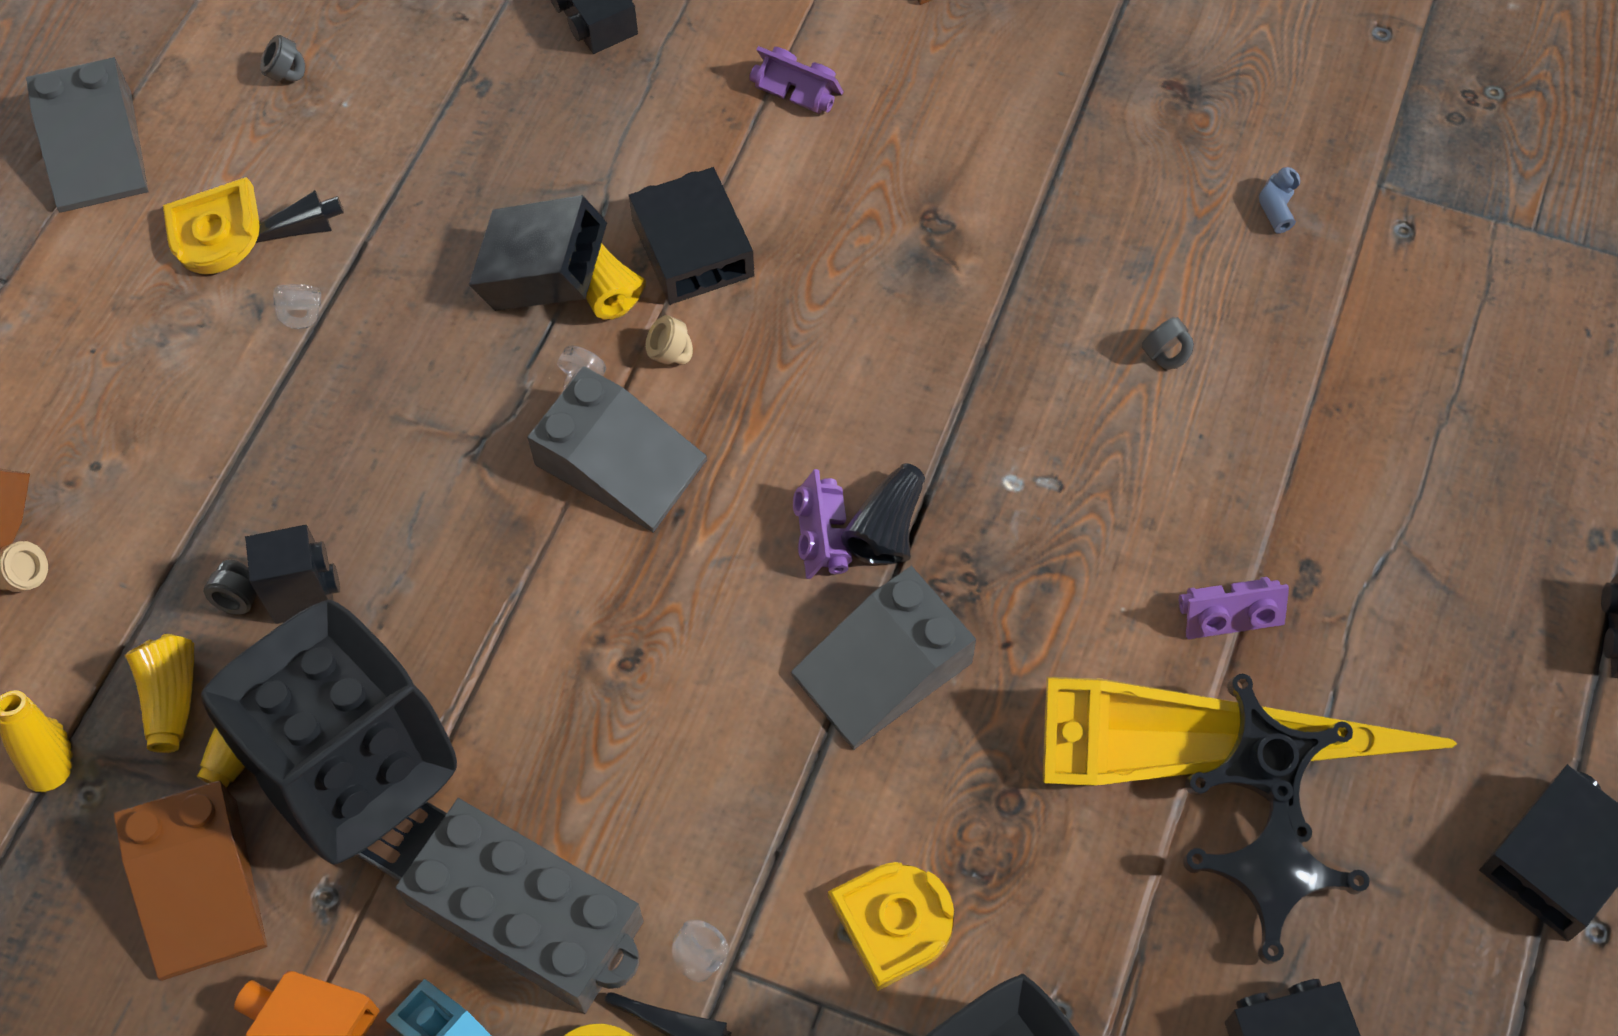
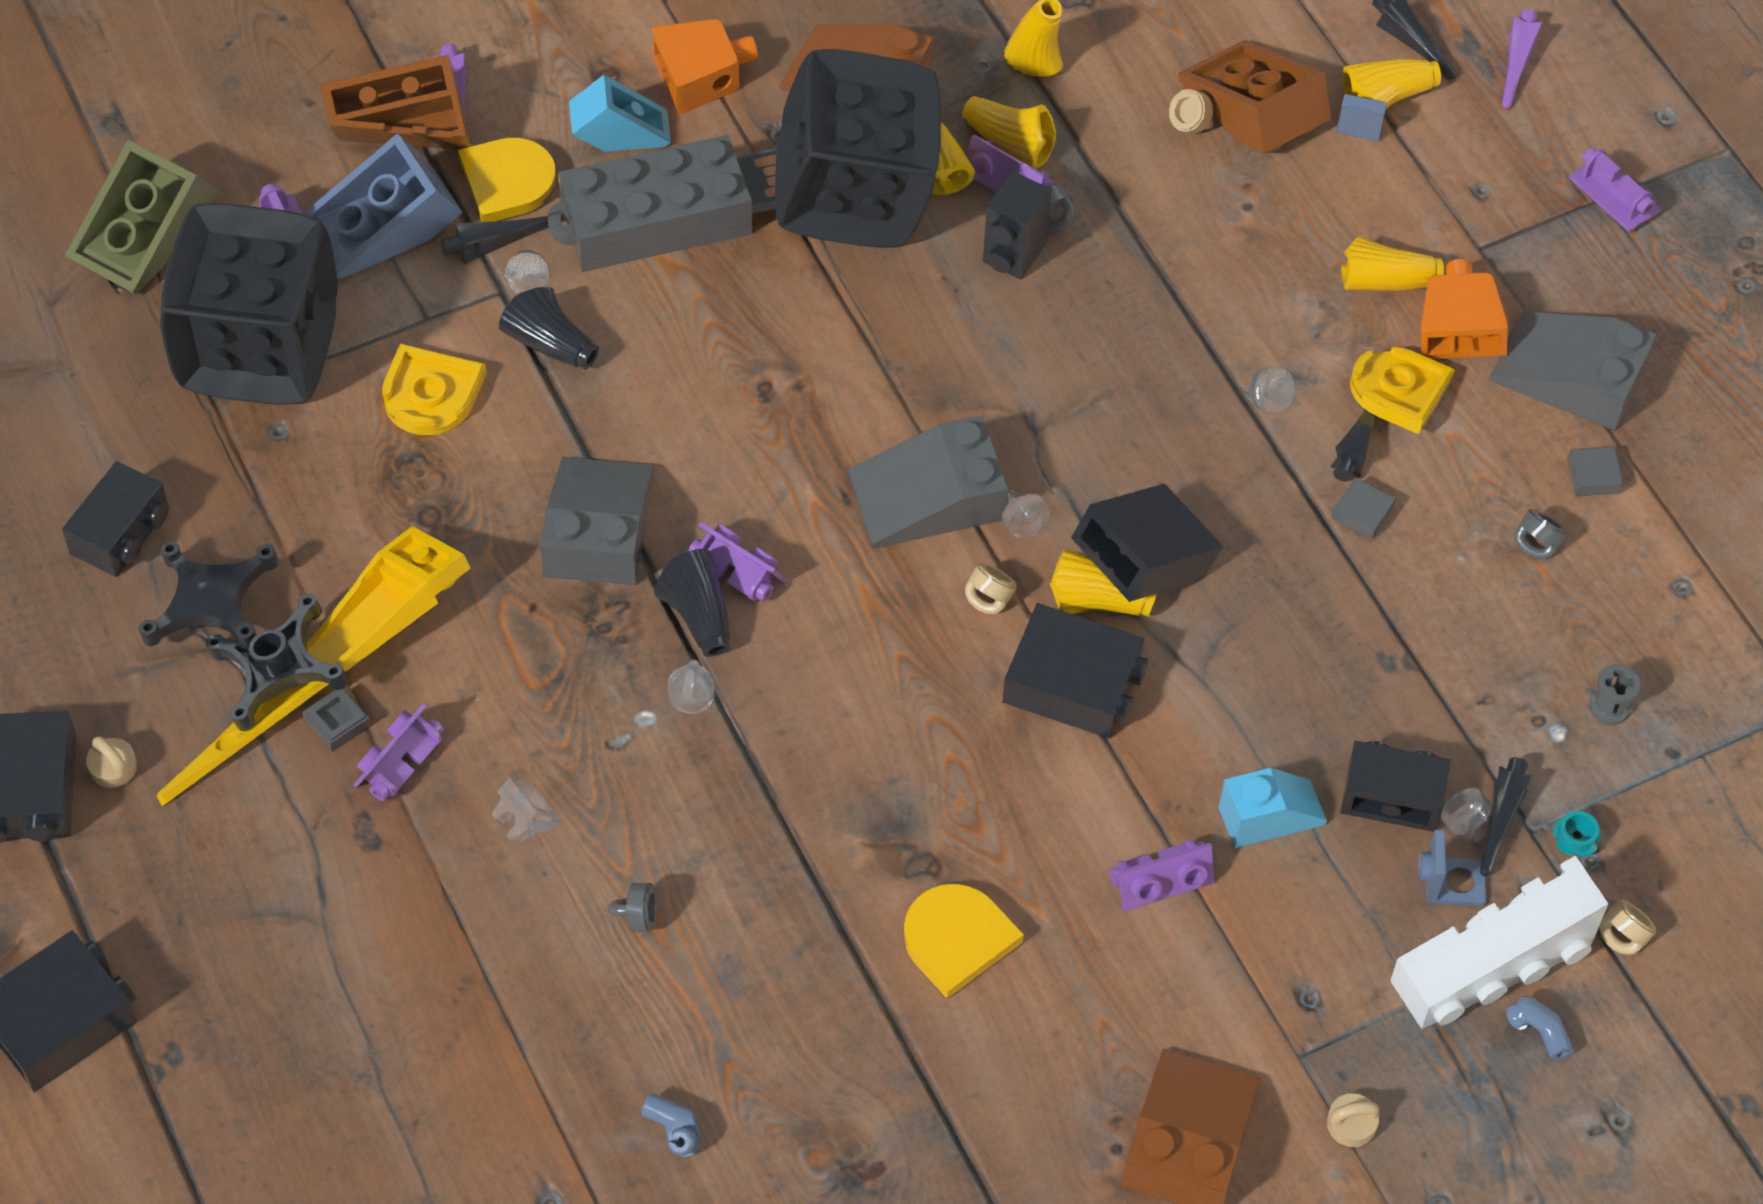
camera: 130 degrees right, 5 degrees down
(95, 316) = (1386, 268): none -> yellow piece
(101, 226) = (1463, 315): none -> orange torso
(187, 71) = (1595, 471): none -> dark grey tile
(219, 639) = (994, 165): none -> medium lavender hinge
(357, 178) = (1363, 508): none -> dark grey tile
(686, 55) = (1268, 806): none -> medium azure slope
(744, 881) = (540, 324): none -> black piece
(961, 465) = (691, 688): none -> clear tile
(968, 157) = (957, 935): none -> yellow tile
(1178, 474) = (527, 806): none -> clear tile
(1264, 674) = (336, 719): none -> dark grey tile
(1472, 807) = (111, 762): none -> tan tile

